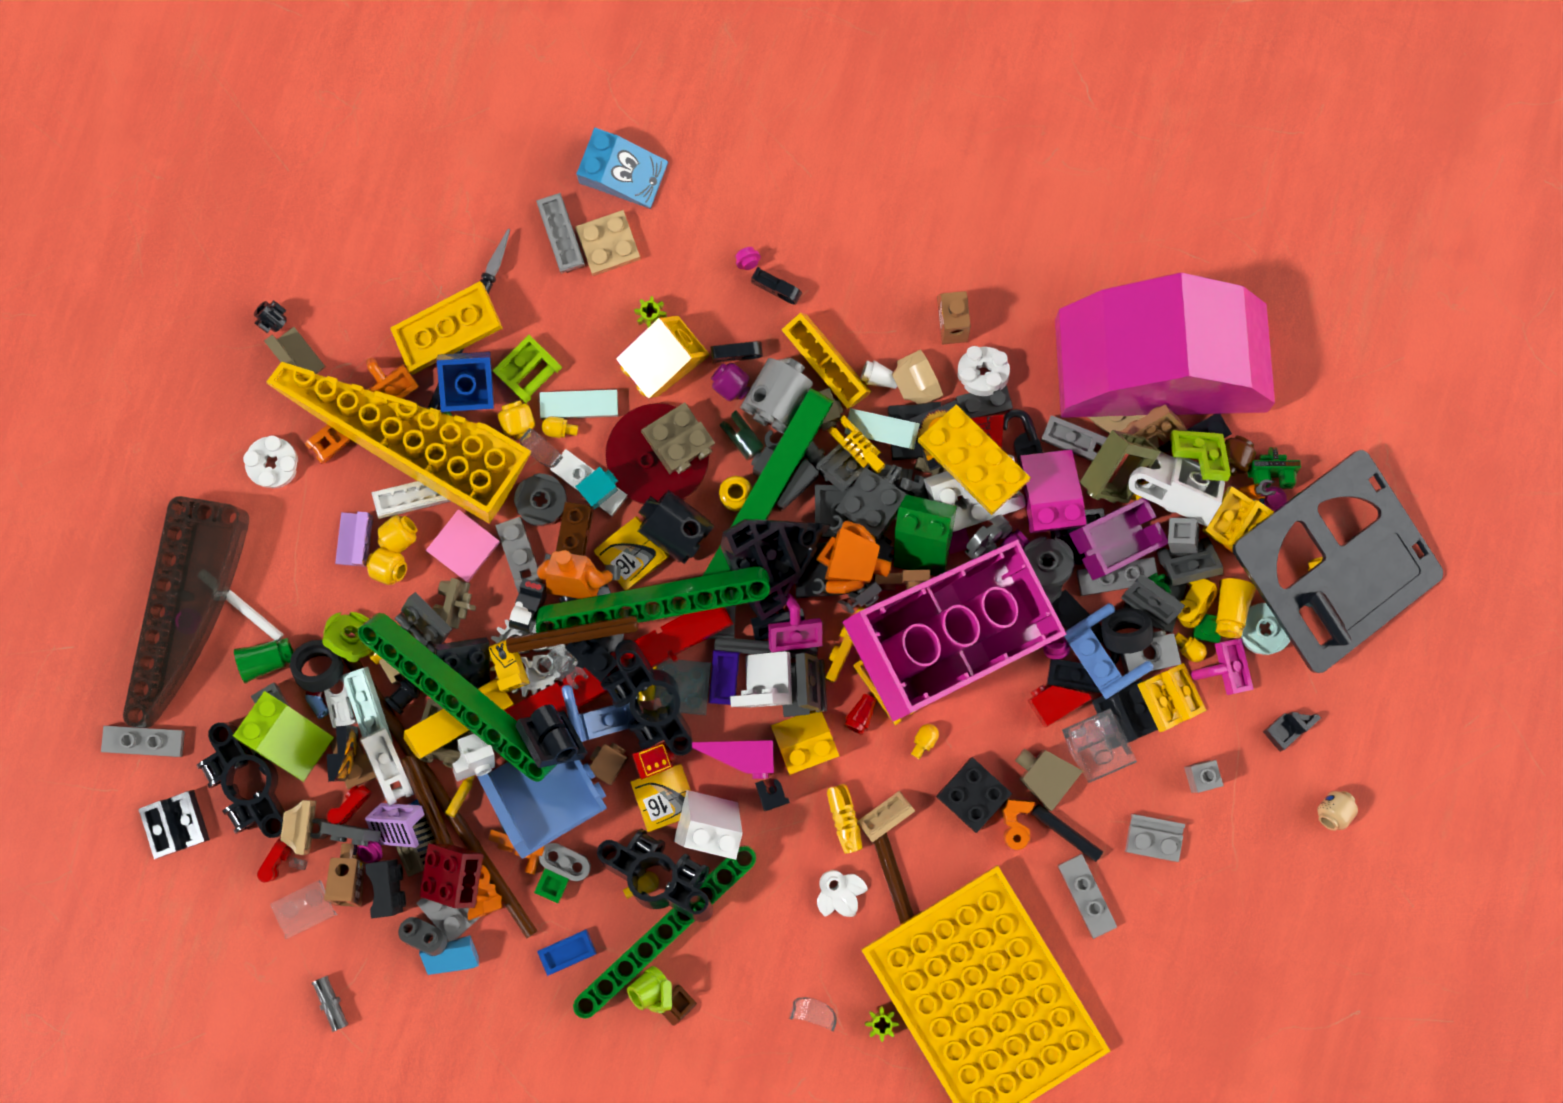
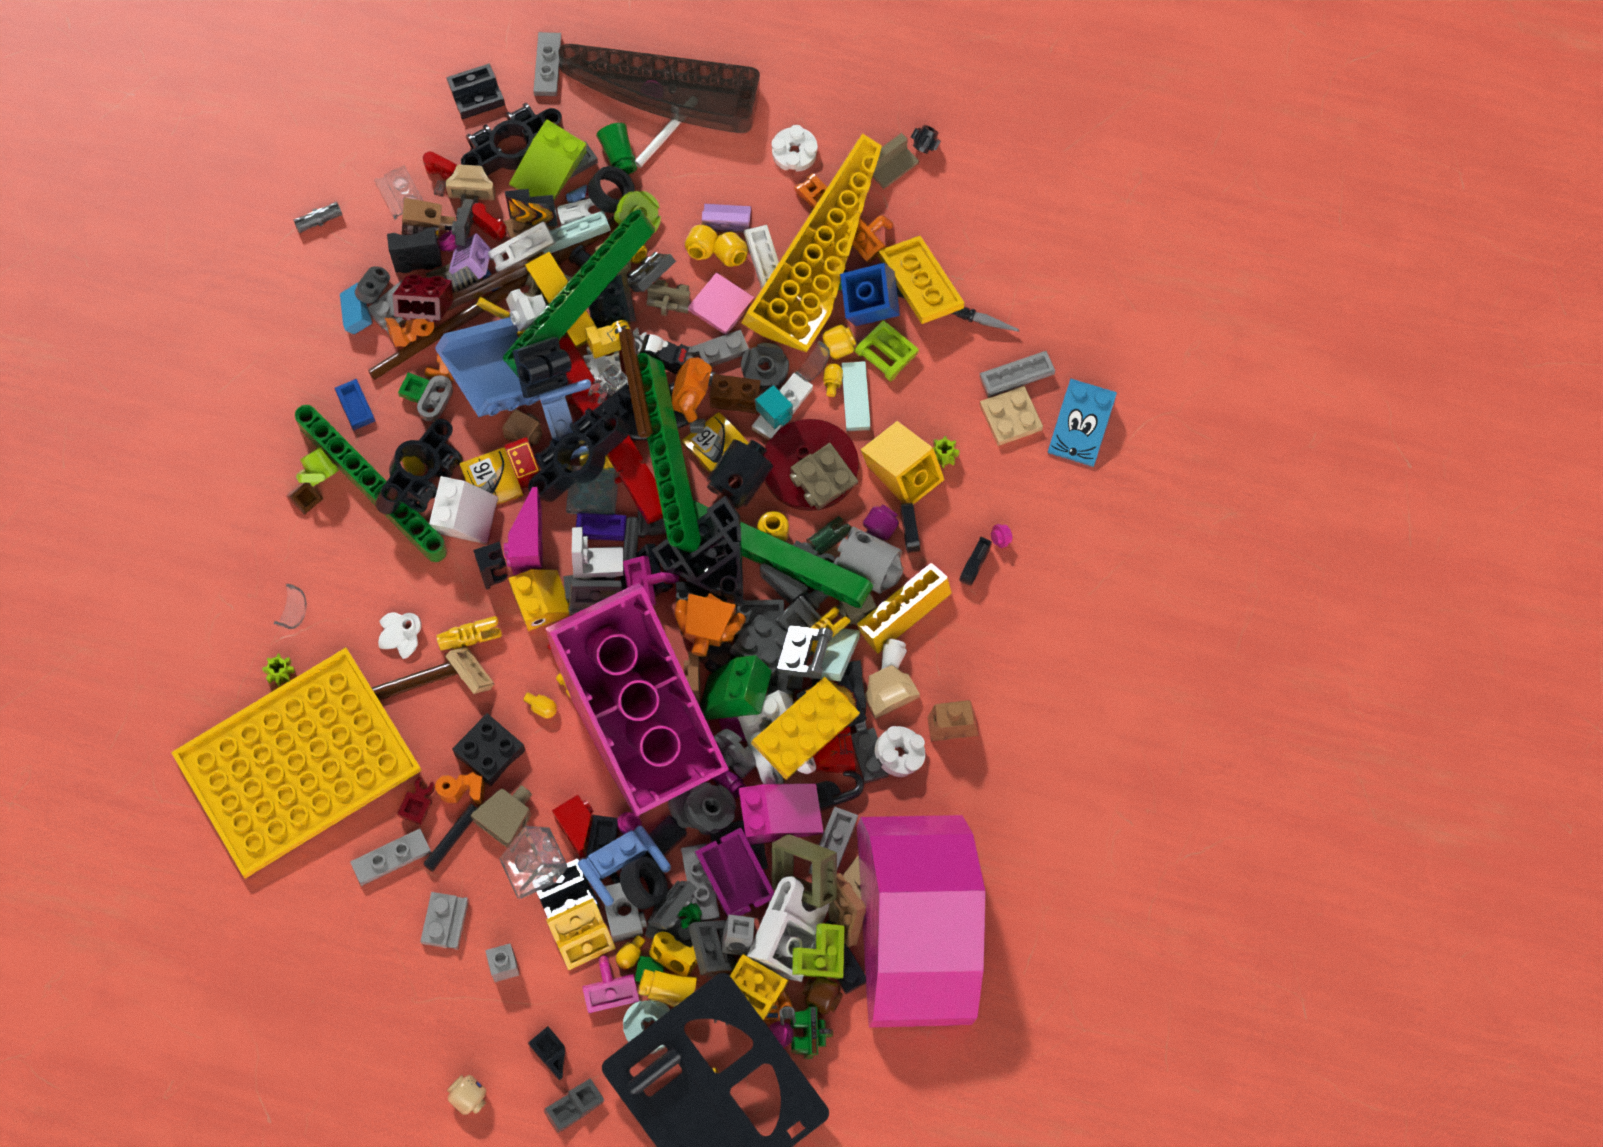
camera: 90 degrees right, 15 degrees down
(866, 596) = (677, 642): dark grey plate -> none
(886, 467) = (797, 651): none -> plate
(1033, 870) = (416, 805): none -> dark red plate
(1343, 703) = (574, 1105): none -> dark grey slope

